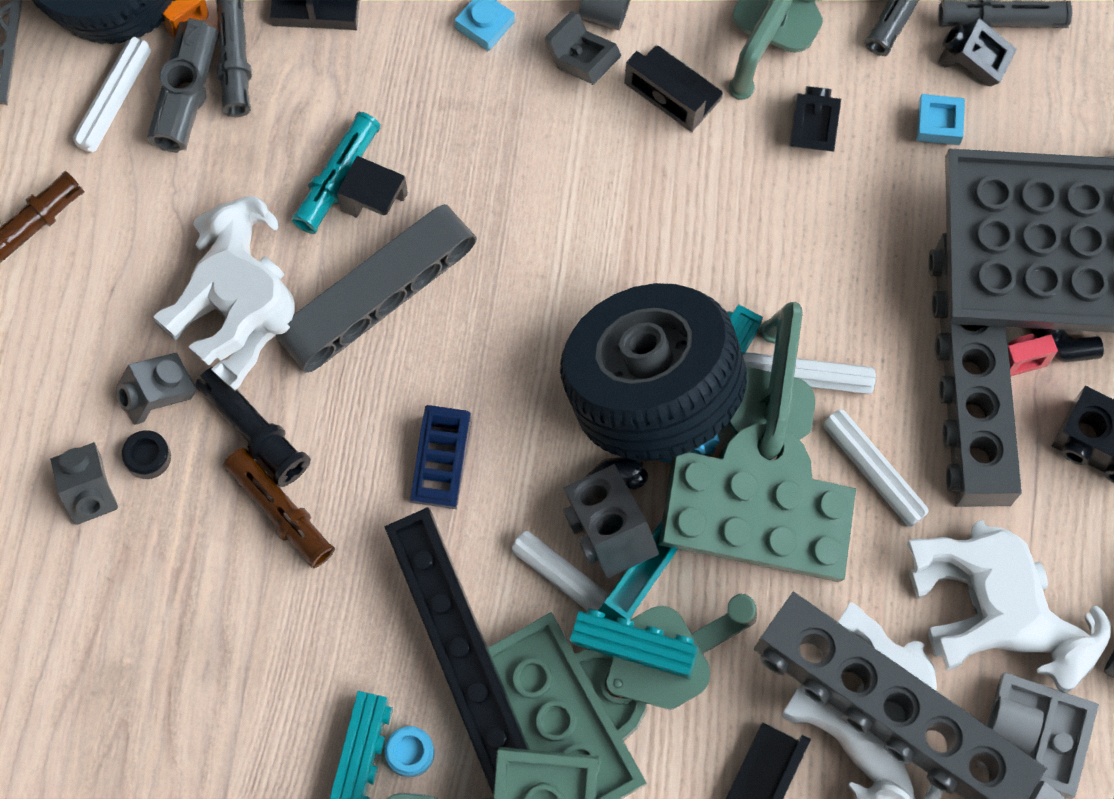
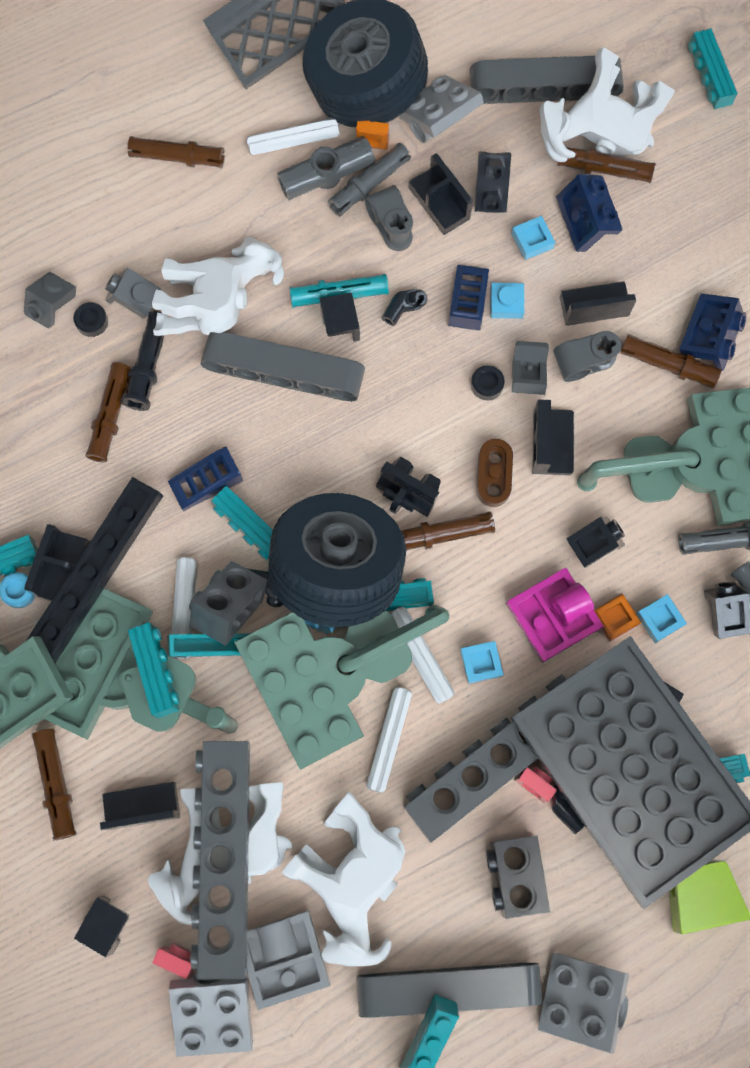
camera: 55 degrees right, 5 degrees up
(293, 61) = (391, 217): none -> dark grey piece
(403, 119) = (404, 302): none -> black arm
(418, 683) = (54, 562): none -> black panel
(461, 80) = (468, 319): none -> dark blue slope
(529, 446) = (243, 518): none -> teal piece
(560, 103) = (487, 382): none -> black tile
(617, 260) = (407, 490): none -> black hips
(670, 163) = (495, 474): none -> reddish brown plate
(698, 244) = (449, 530): none -> reddish brown pin
(860, 318) = (481, 662): none -> medium azure plate
(862, 212) = (555, 614): none -> dark pink plate
(906, 161) = (617, 617): none -> orange tile

